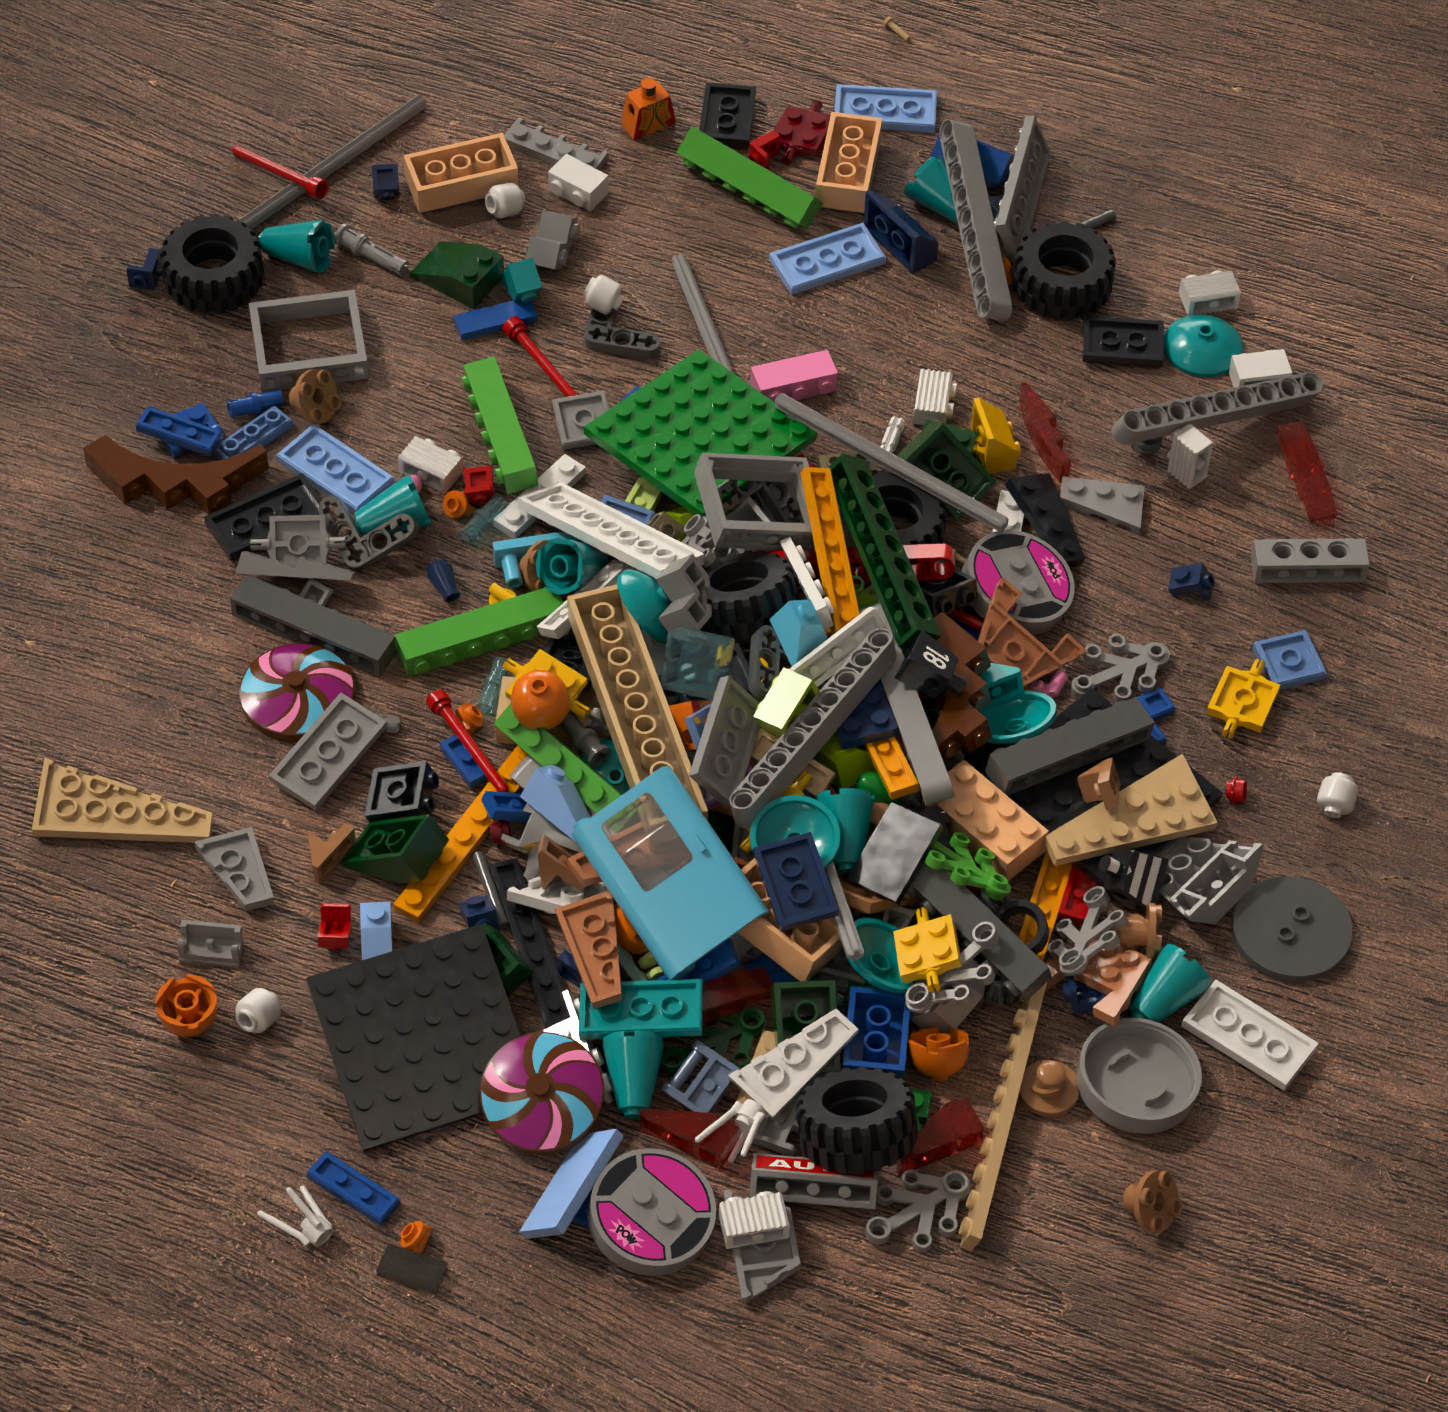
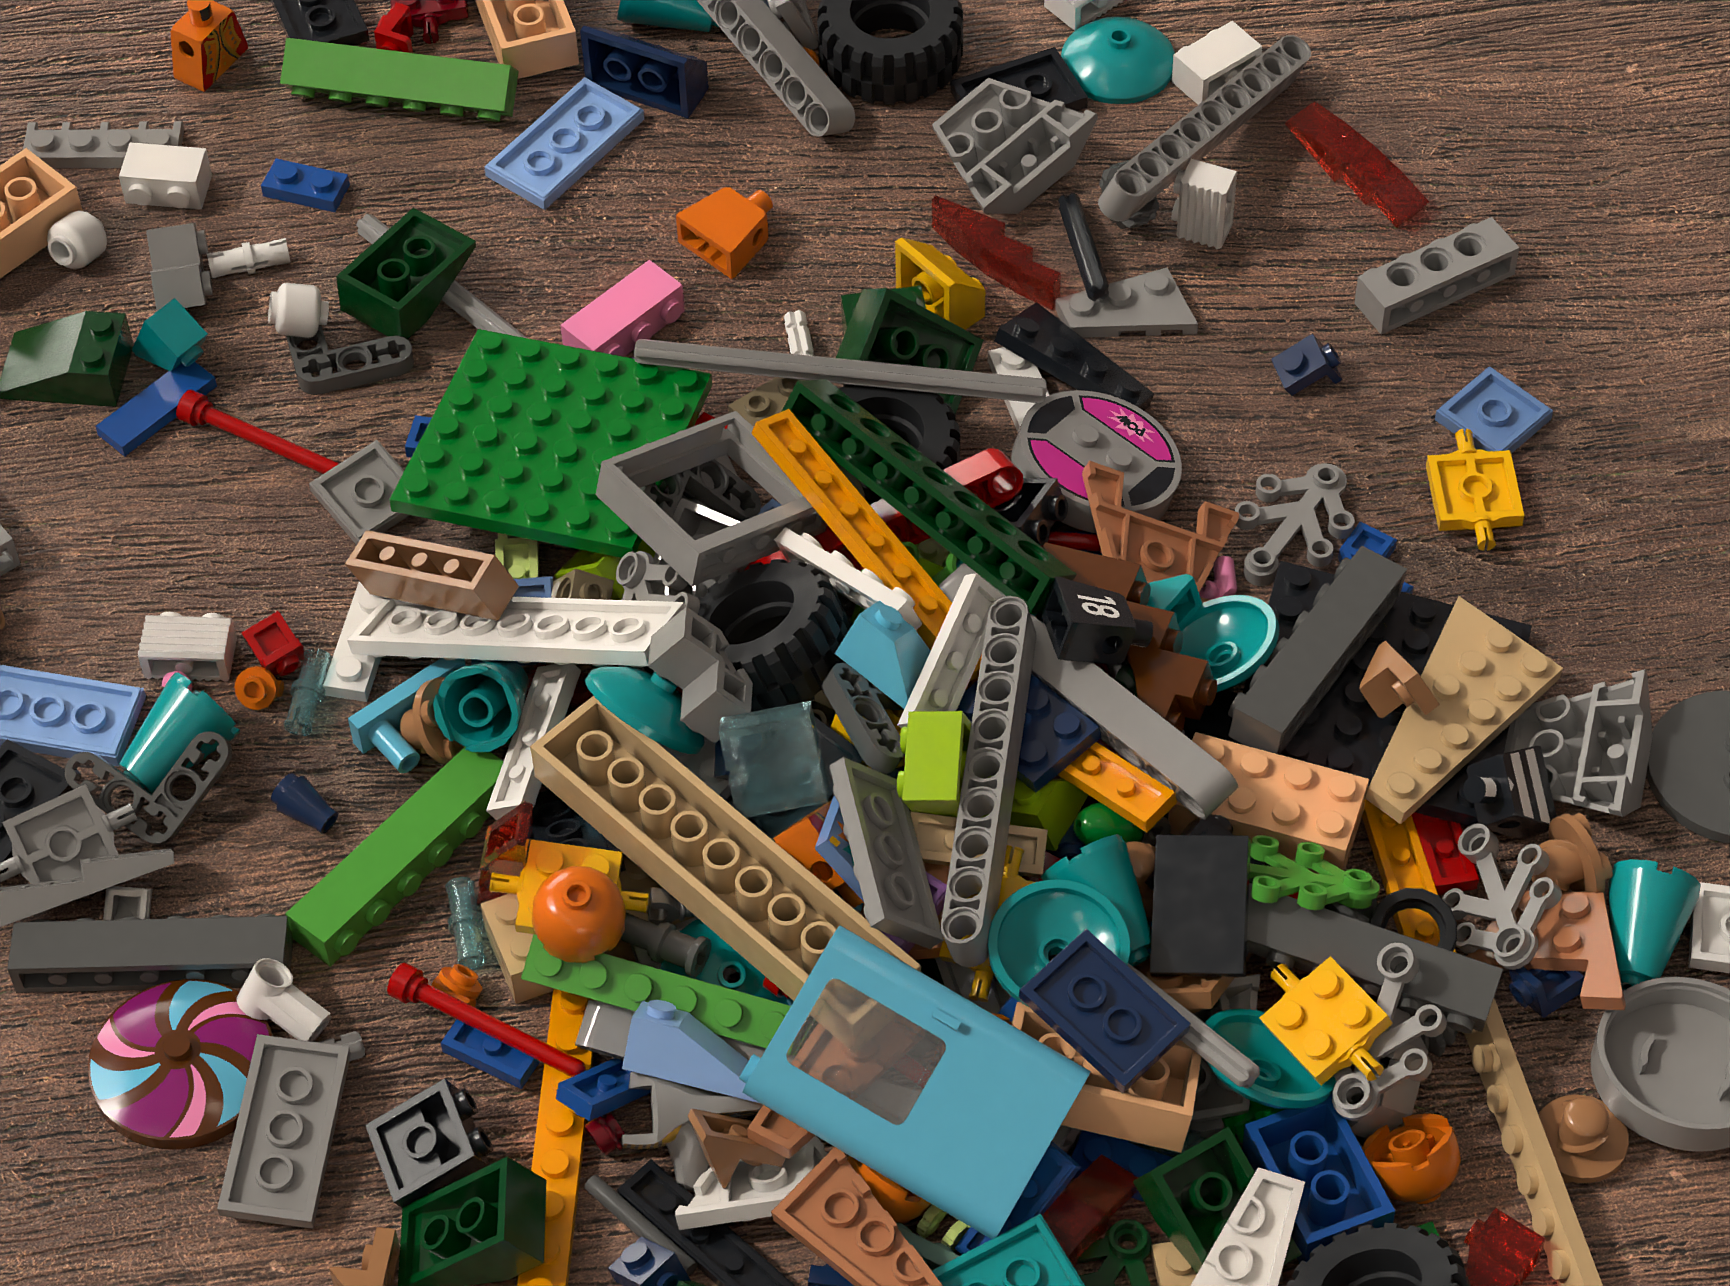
camera: 25 degrees left, 0 degrees up
(362, 676) = (272, 996): none -> white piece
(499, 594) = (398, 790): yellow plate -> none
(500, 425) = (258, 550): bright green brick -> none
(527, 645) = (505, 848): none -> clear red slope
(581, 480) = (432, 575): none -> medium nougat brick
(598, 252) = (248, 258): none -> white pin
(658, 221) = (305, 185): none -> blue plate
(678, 299) = (403, 274): none -> dark green slope
(889, 350) = (725, 228): none -> orange torso
(933, 396) = (824, 266): white brick -> none
(1092, 370) = (1011, 144): none -> light grey wedge
(1098, 452) = (1083, 247): none -> black axle
(1236, 790) = (1546, 614): red plate -> none
(1337, 795) = (1676, 563): white head -> none

